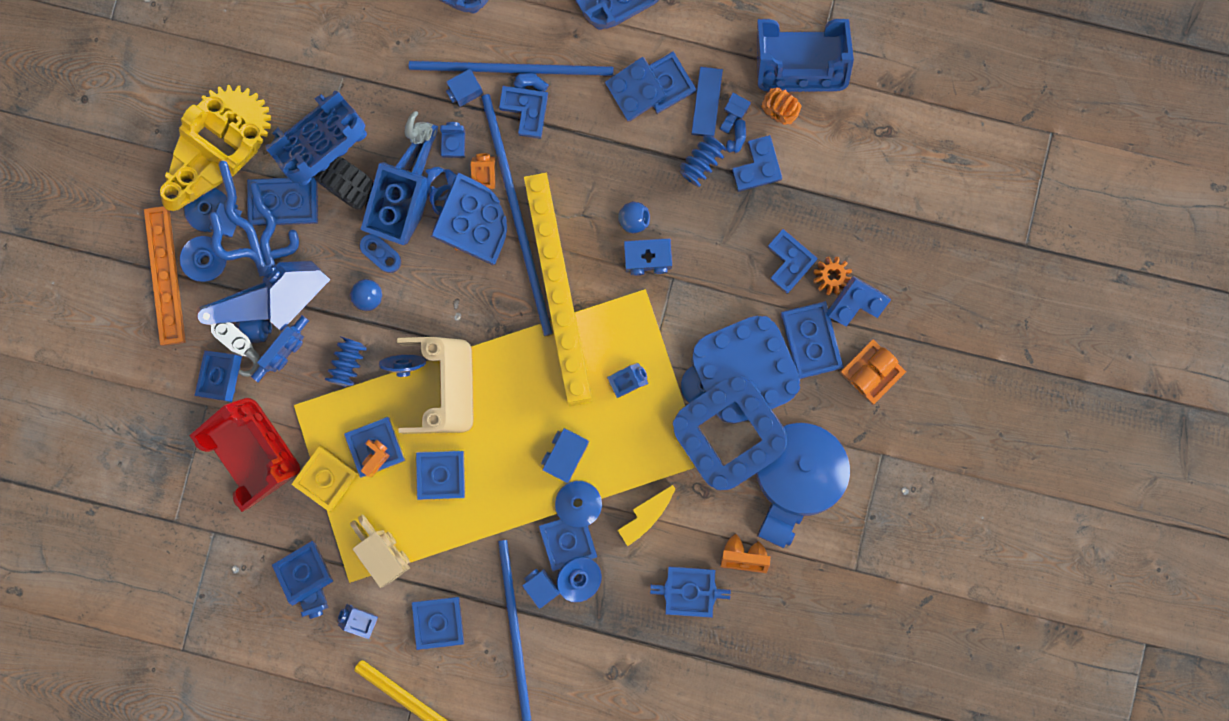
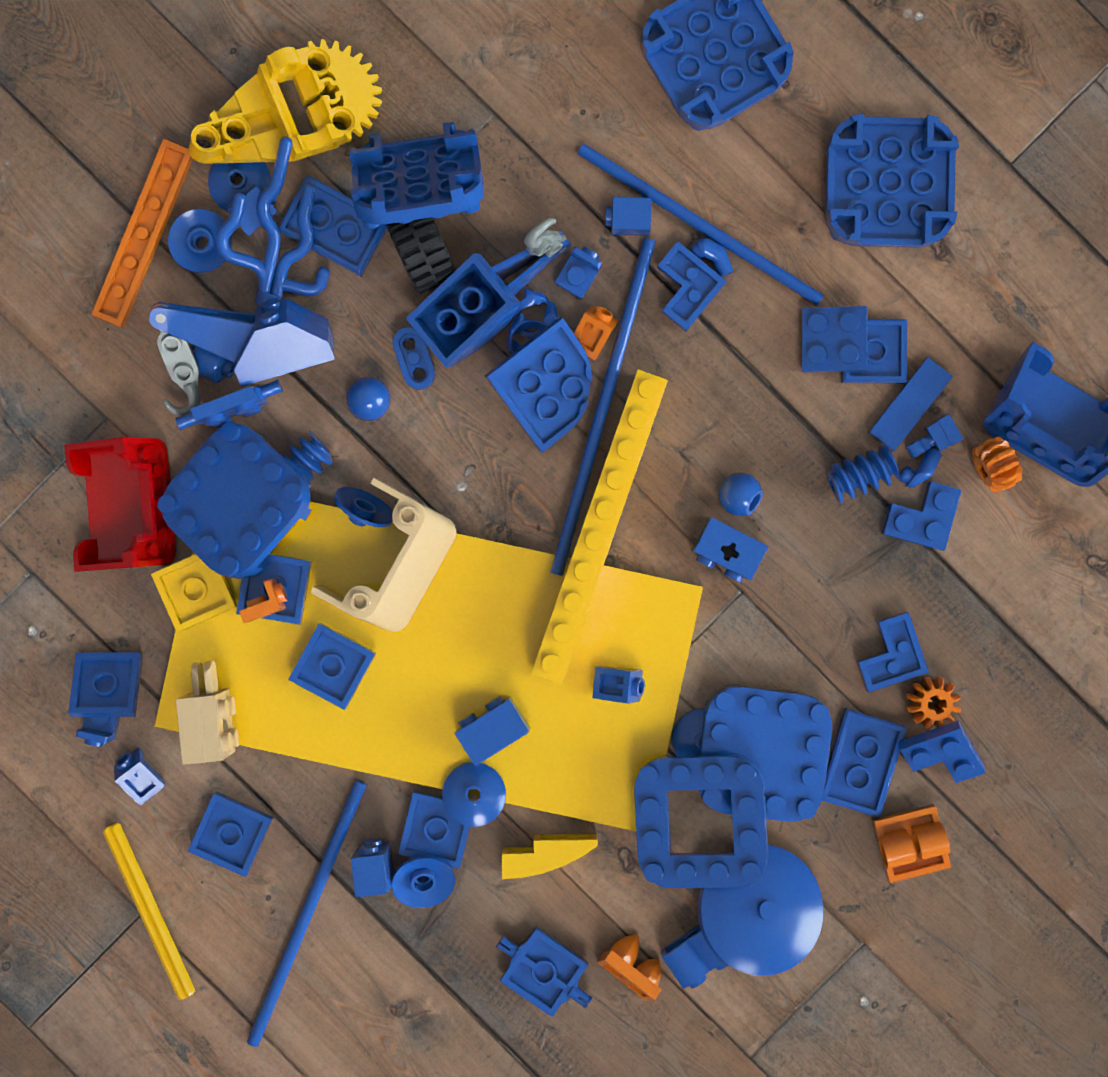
camera: 25 degrees right, 5 degrees up
(218, 376) = (138, 393): blue plate -> none
(318, 406) = (235, 501): none -> blue plate

